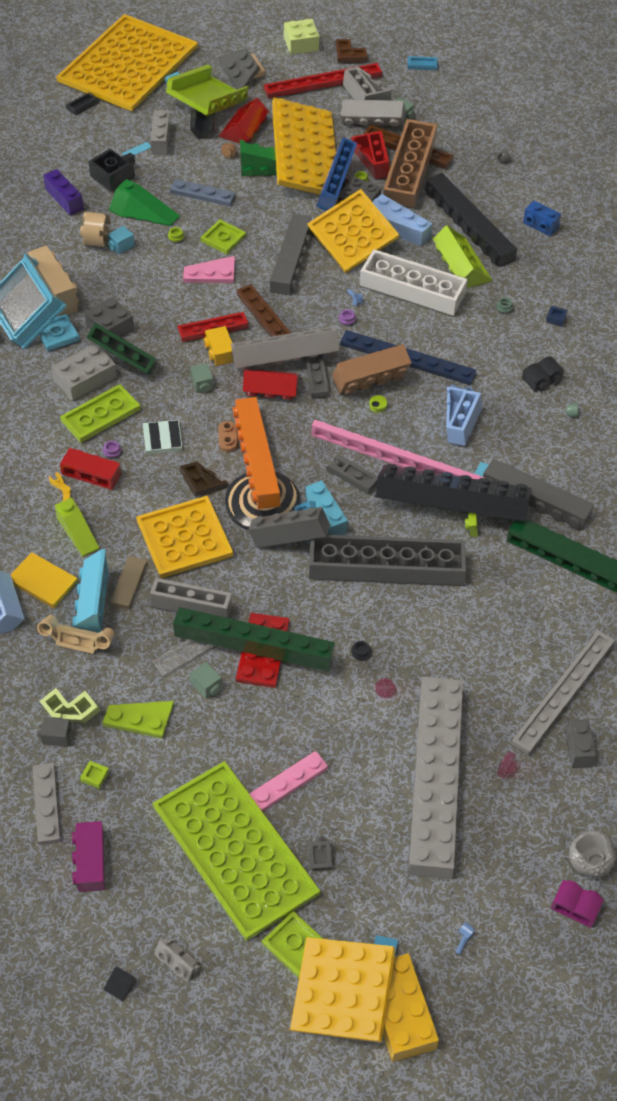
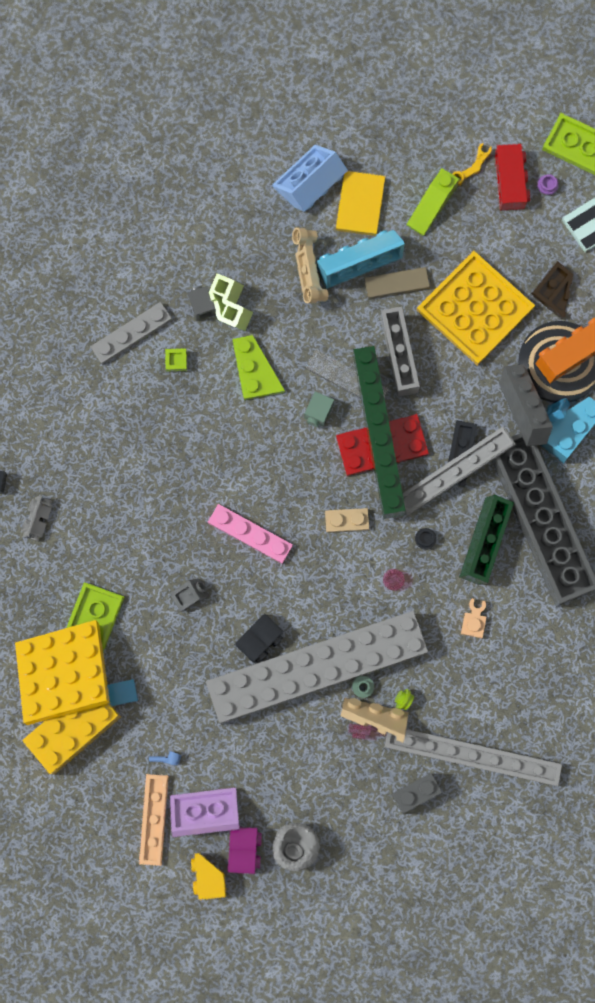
camera: 70 degrees right, 25 degrees up
(88, 856) = (94, 397): magenta brick -> none
(236, 850) = (160, 518): lime plate -> none
(301, 596) = (462, 441): none -> black plate
(314, 702) = (347, 520): none -> tan plate
(316, 591) = (457, 470): none -> light grey tile
(386, 604) = (486, 539): none -> dark green brick
(388, 810) = (260, 638): none -> black brick
(448, 646) = (473, 623): none -> light nougat plate
(468, 753) = (363, 679): none -> sand green plate
(494, 721) = (404, 699): none -> lime plate
(506, 738) = (384, 718): none -> tan wing
(518, 972) = (153, 819): none -> light nougat tile
(530, 919) = (204, 812): none -> lavender plate
(592, 943) = (210, 878): none -> yellow slope

